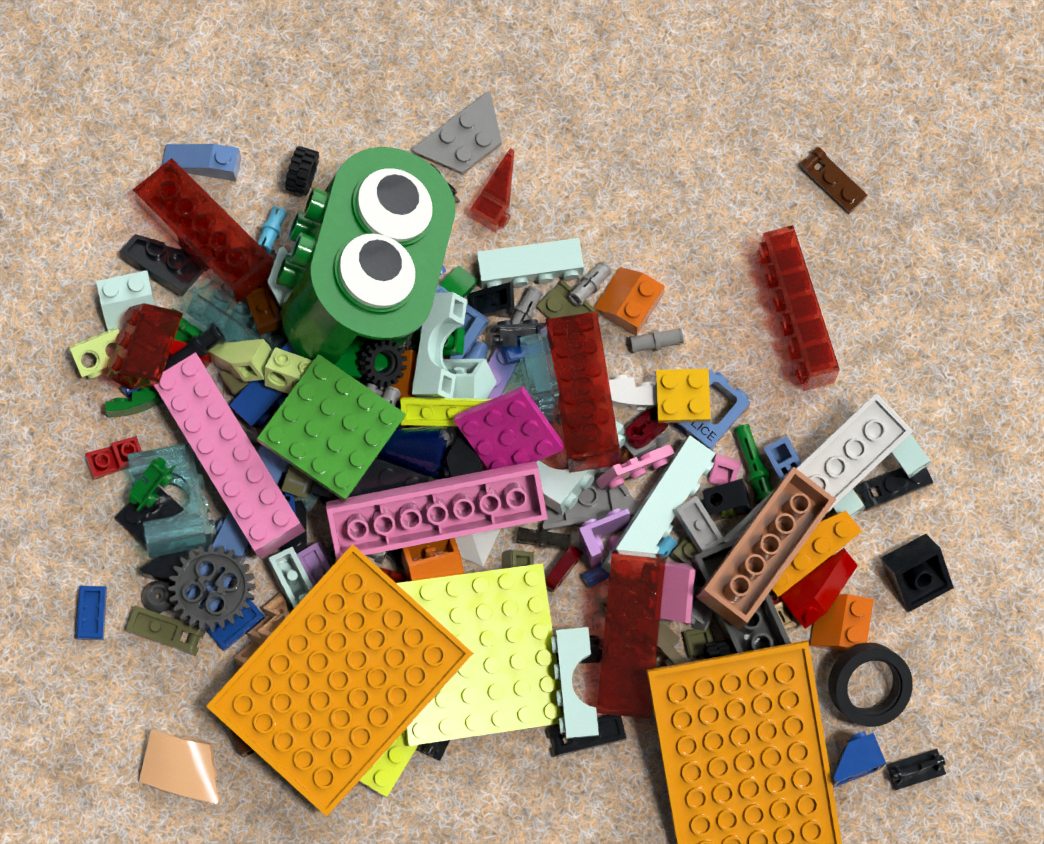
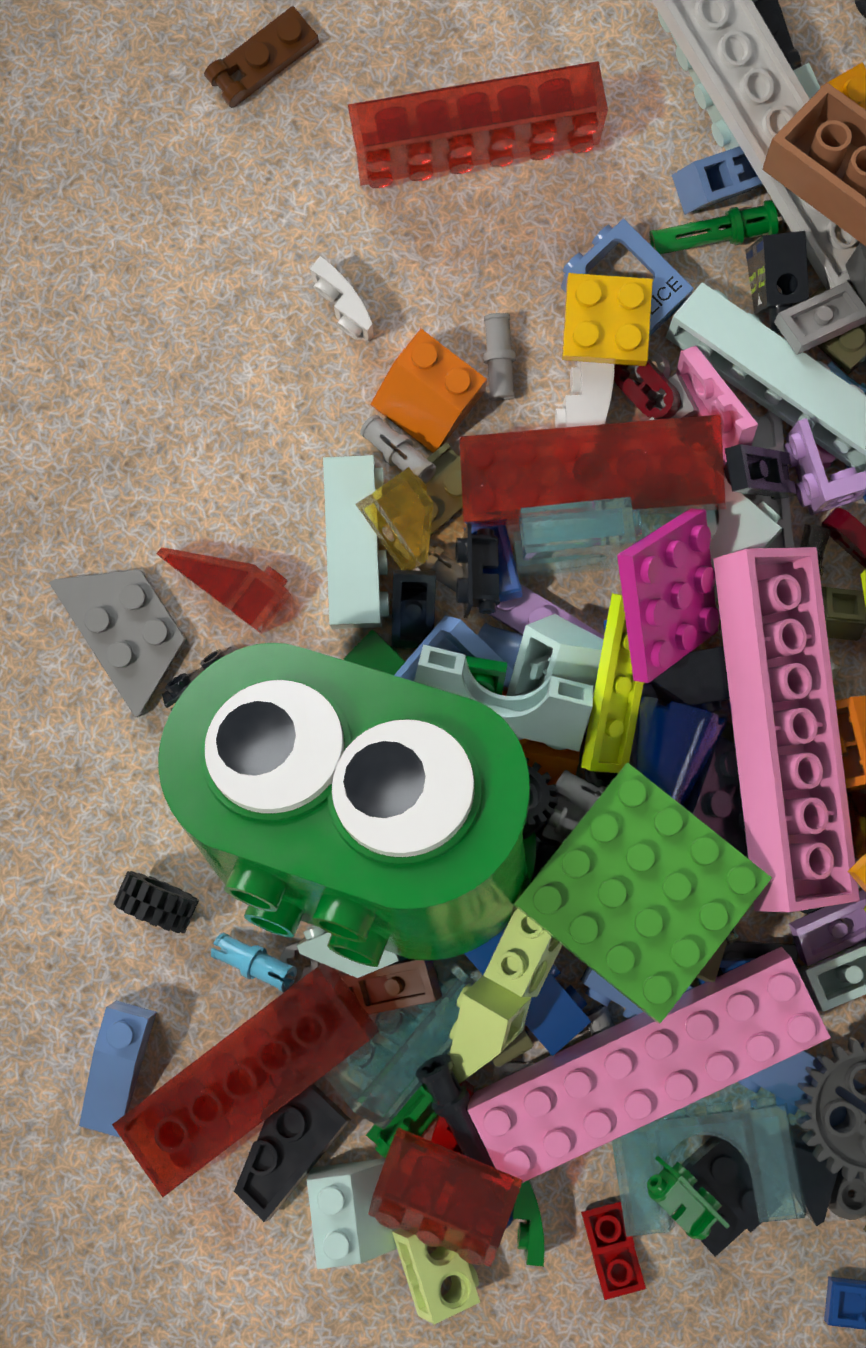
camera: 85 degrees left, 10 degrees up
(546, 284) = (401, 518): none -> clear yellow slope
(593, 488) = (759, 471): none -> black plate
(677, 247) = (349, 308): none -> white slope
(724, 470) = (720, 274): bright pink slope -> none

